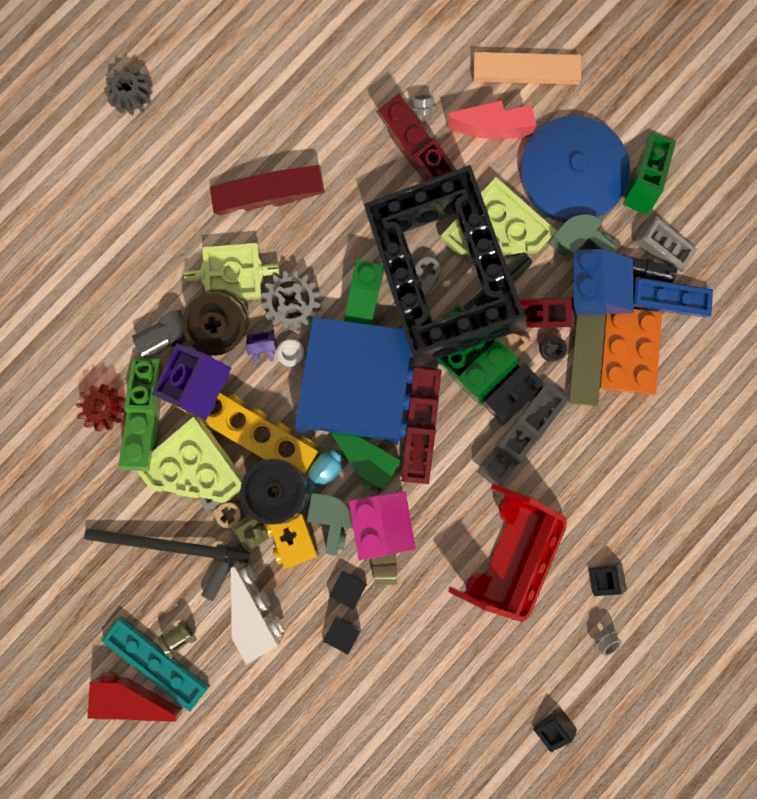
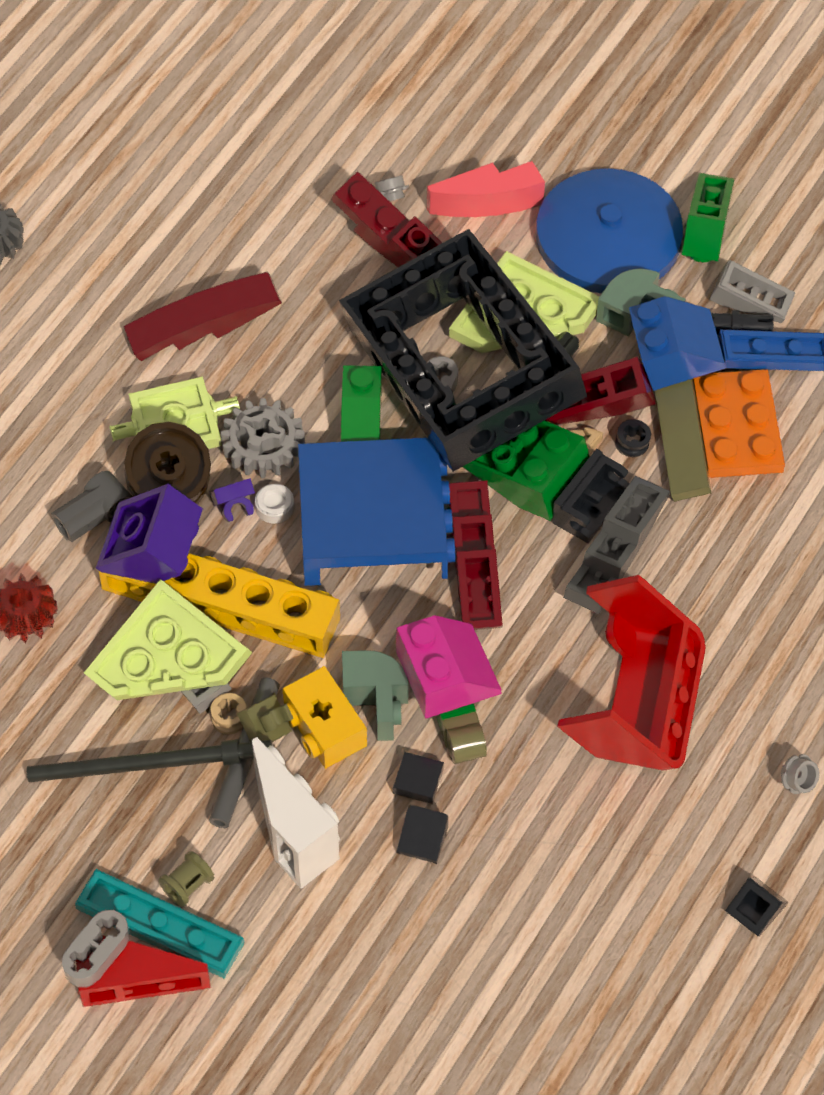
camera: 10 degrees left, 25 degrees down
(106, 699) = (89, 941): none -> light grey beam
(142, 415) = (82, 603): bright green slope -> none
(260, 501) = (294, 643): black wheel -> none
(325, 469) = (352, 631): medium azure plant -> none
(368, 460) = (397, 597): green slope -> none
(527, 68) = (518, 129): light nougat tile -> none
(608, 579) = (781, 701): black slope -> none

